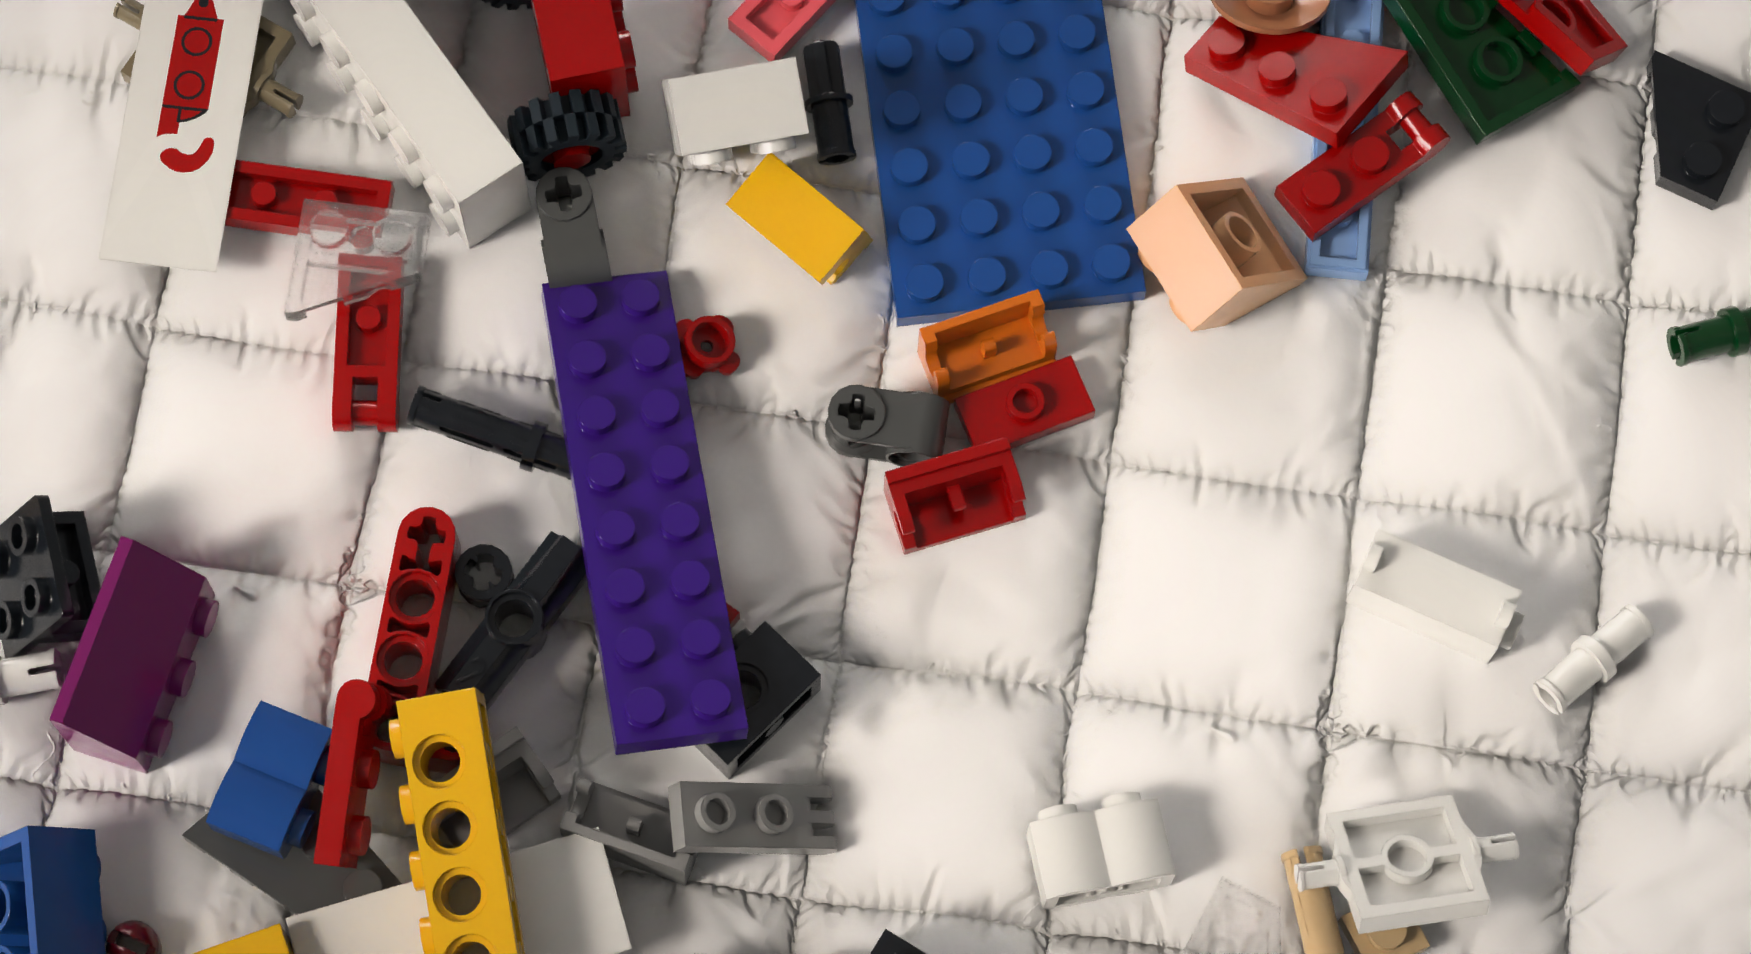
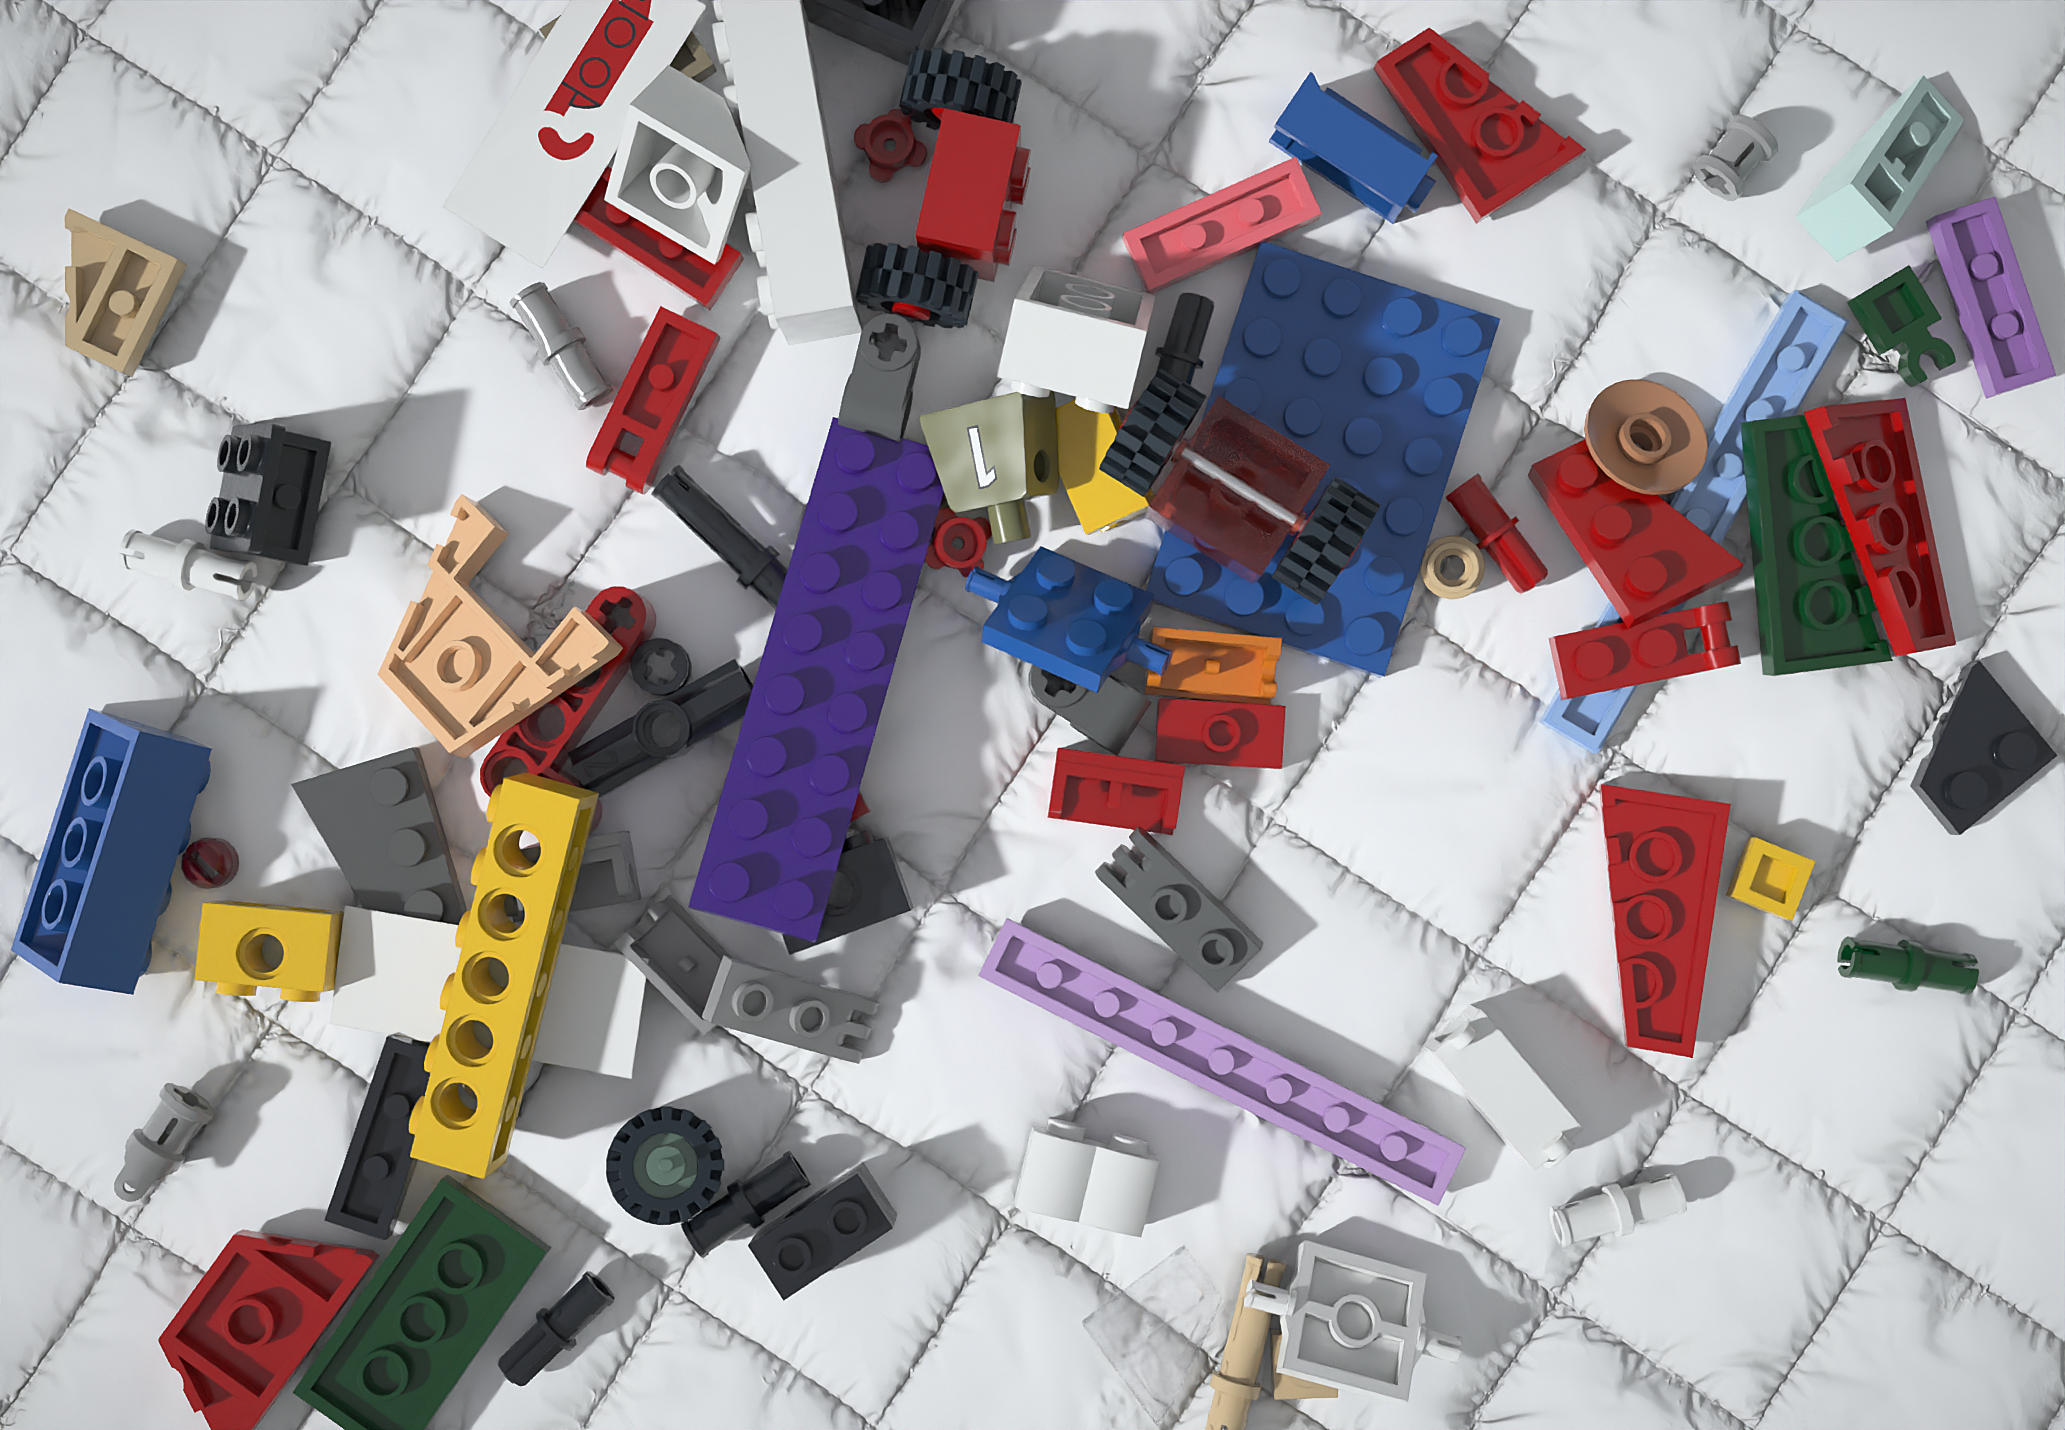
camera: 25 degrees right, 15 degrees up
(134, 657) = (308, 608): magenta slope -> none
(262, 334) = (561, 345): none -> light grey pin
(272, 781) = (380, 784): blue brick -> none
(303, 642) = (463, 664): none -> light nougat wing
(312, 119) = (680, 164): none -> white slope
(350, 772) = (445, 814): red plate -> none
(352, 253) = (670, 311): clear wing -> none
(477, 21) = (893, 127): none -> red plate
(708, 249) = (996, 457): none -> torso
(839, 357) = (1068, 619): none -> blue plate
(935, 173) = (1237, 488): none -> brick
(1067, 576) = (1180, 910): none -> dark grey hinge
(1157, 155) = (1473, 567): none -> tan plate
(1169, 691) = (1222, 1061): none -> lavender plate
(1183, 128) = (1498, 534): none -> red axle
(1214, 252) = (1466, 670): light nougat slope -> none
(1489, 370) = (1663, 899): none -> red wing
(1574, 311) = (1770, 878): none -> yellow plate

